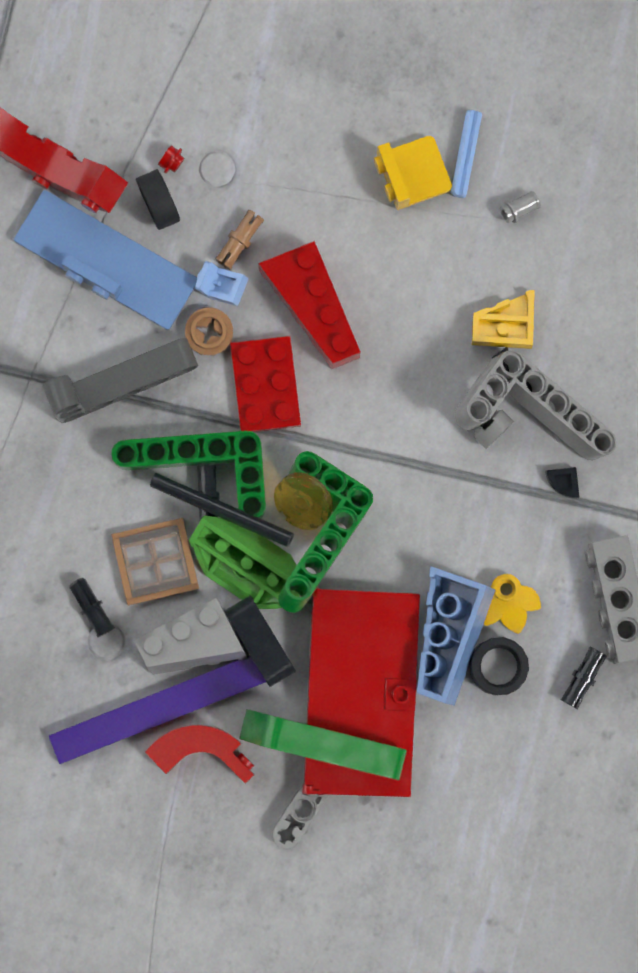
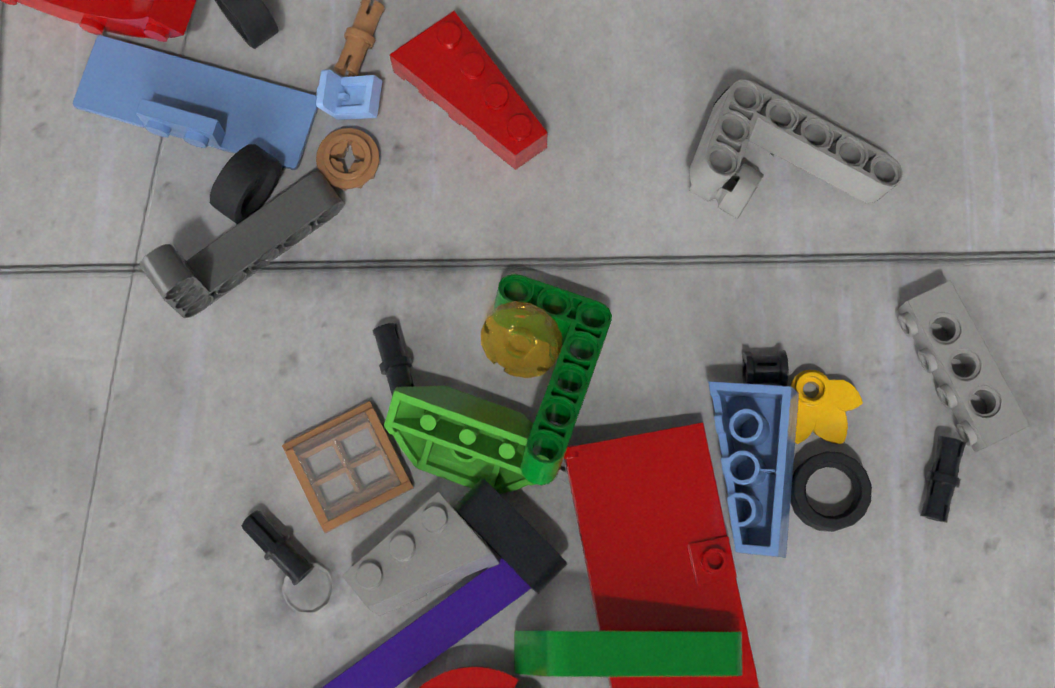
camera: 10 degrees left, 5 degrees down
(129, 335) = (245, 183): none -> black tyre
(202, 457) = (375, 315): green beam -> none
(222, 510) = (418, 375): black piece -> none
(265, 384) = (436, 208): red plate -> none
(476, 565) = (765, 368): none -> black bush
(506, 324) = (719, 59): yellow wing -> none
(564, 481) = (846, 237): black tile -> none

